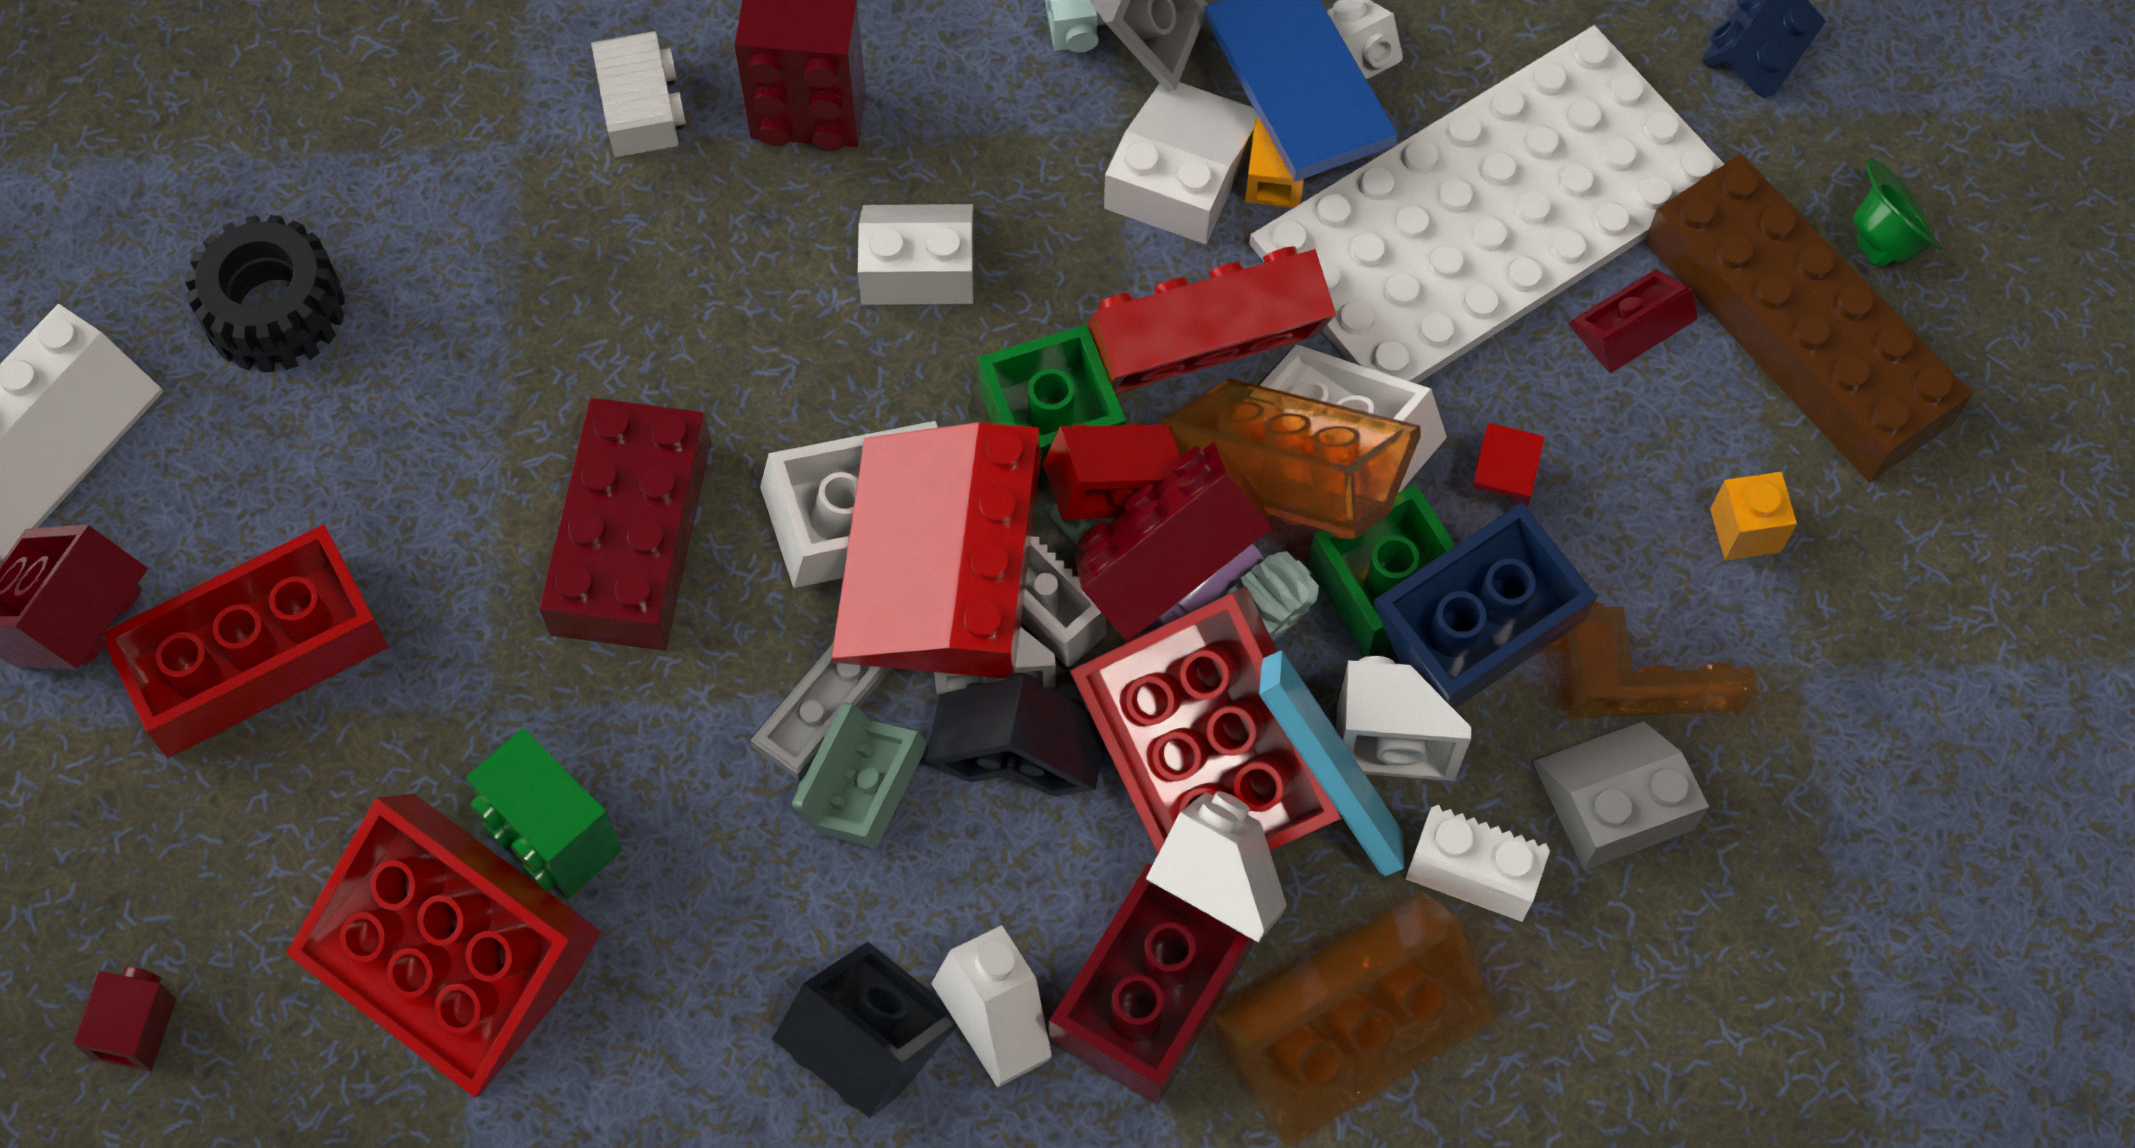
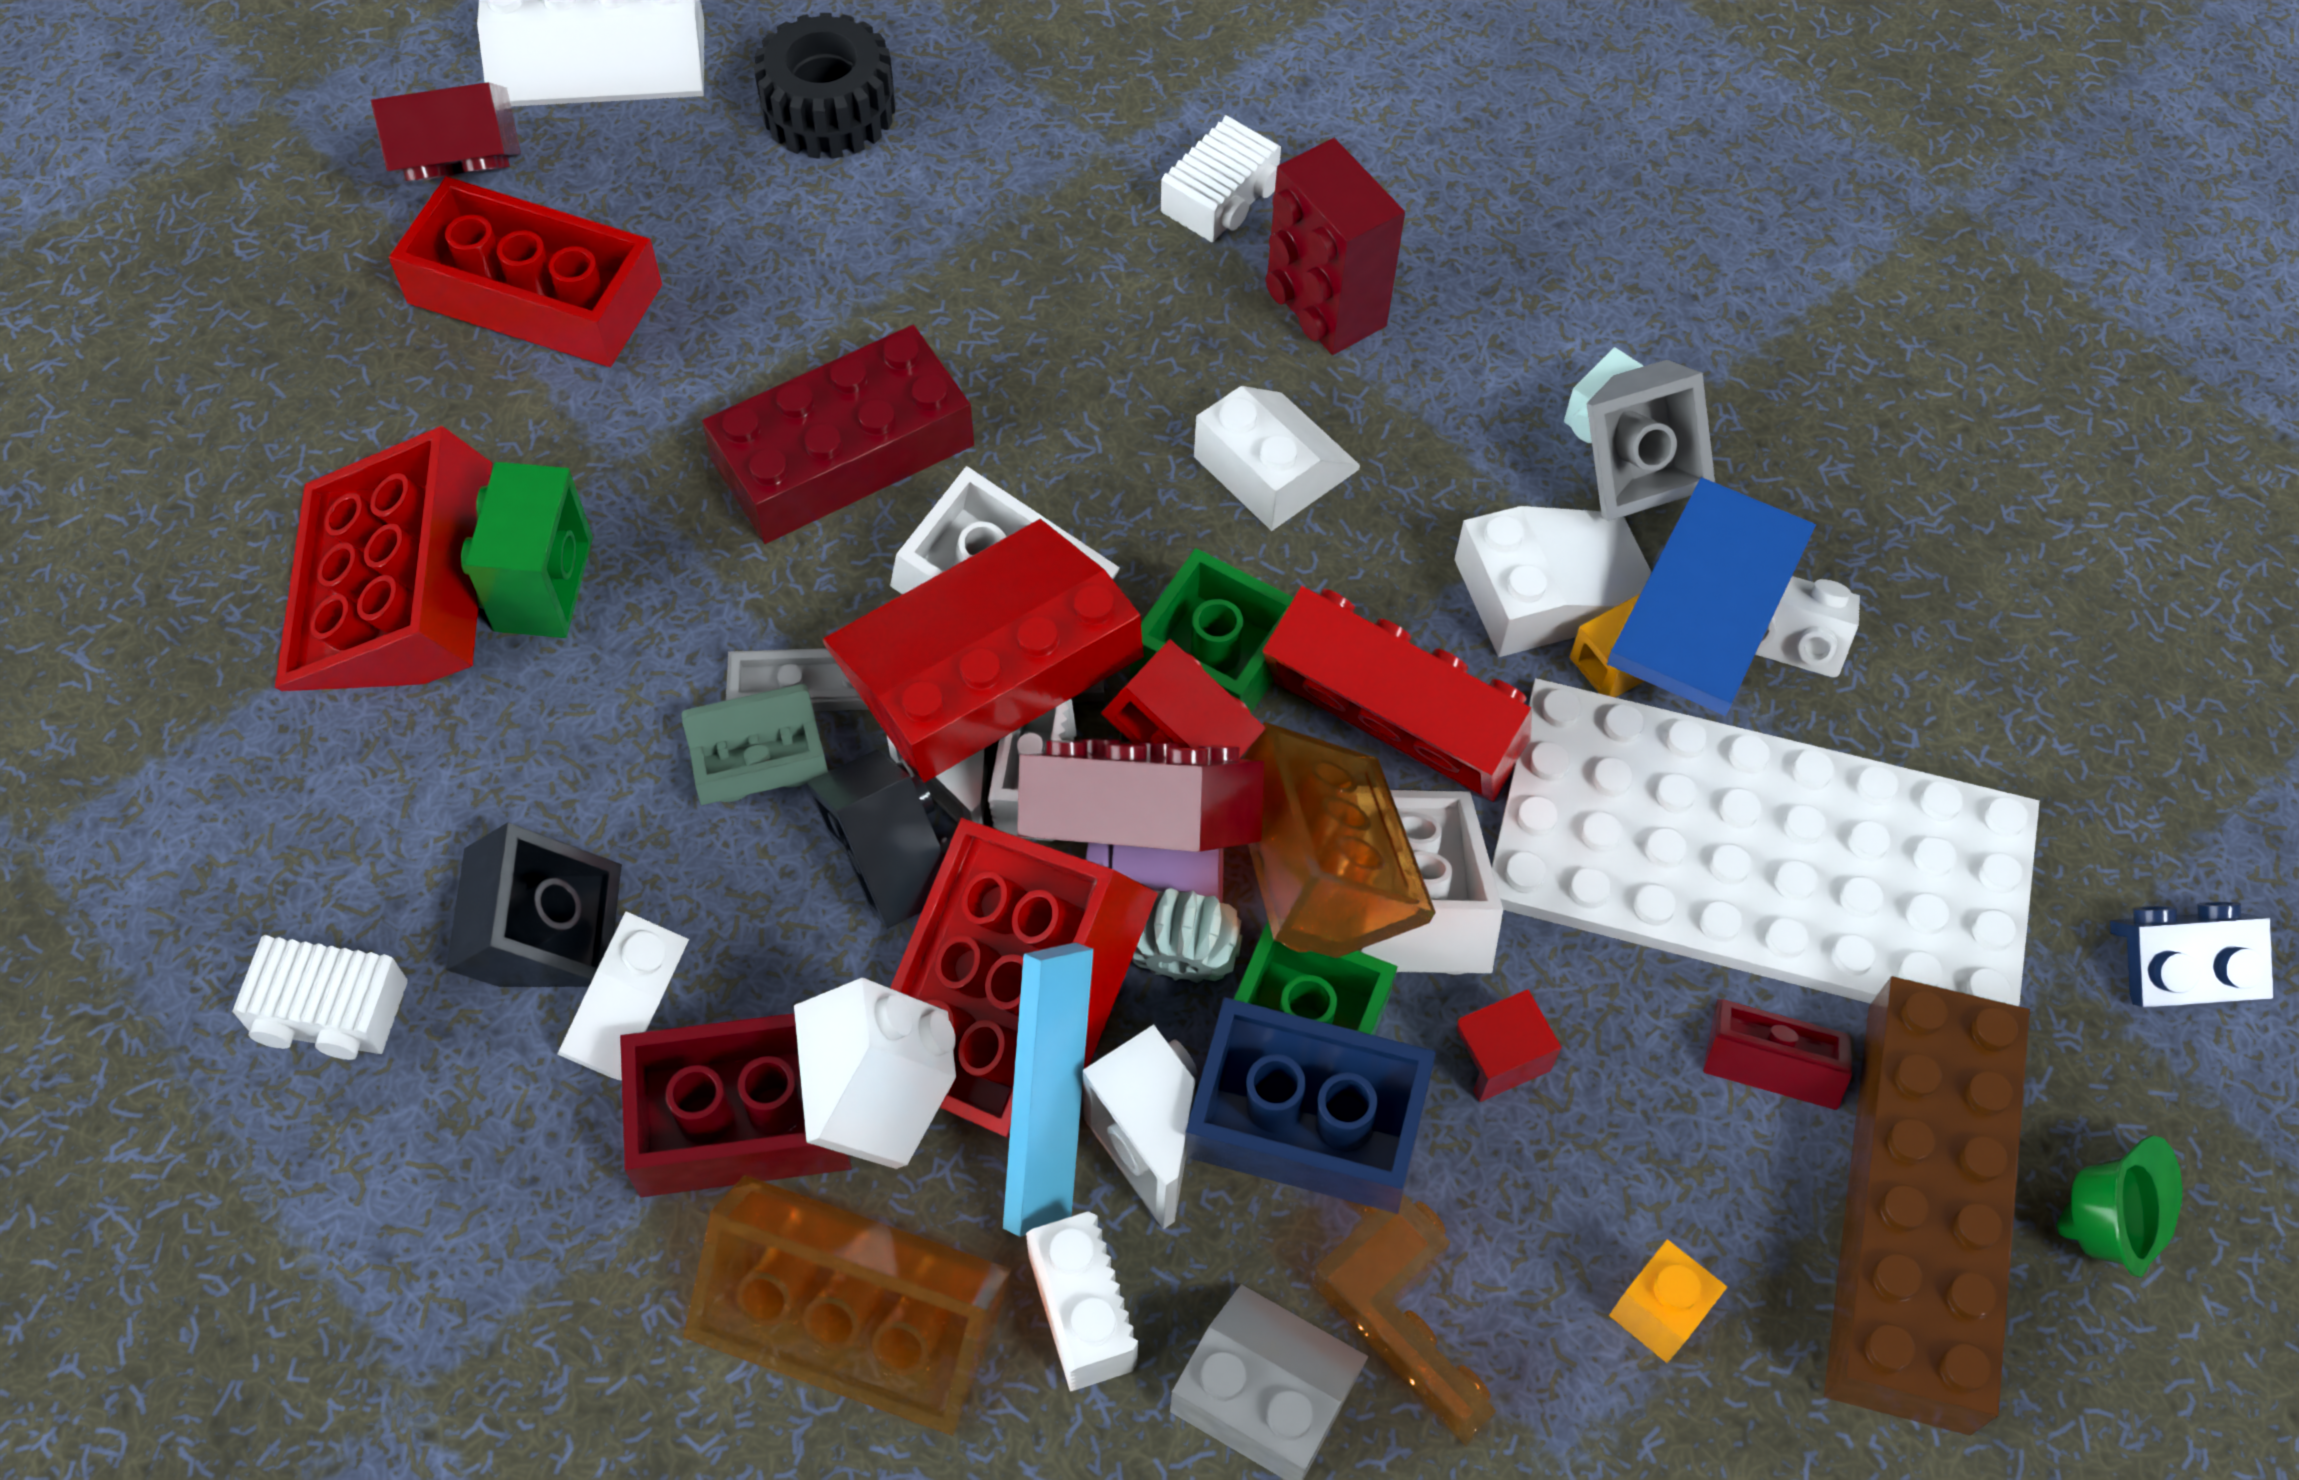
camera: 50 degrees right, 5 degrees down
(125, 1018) = (168, 421): dark red brick -> none

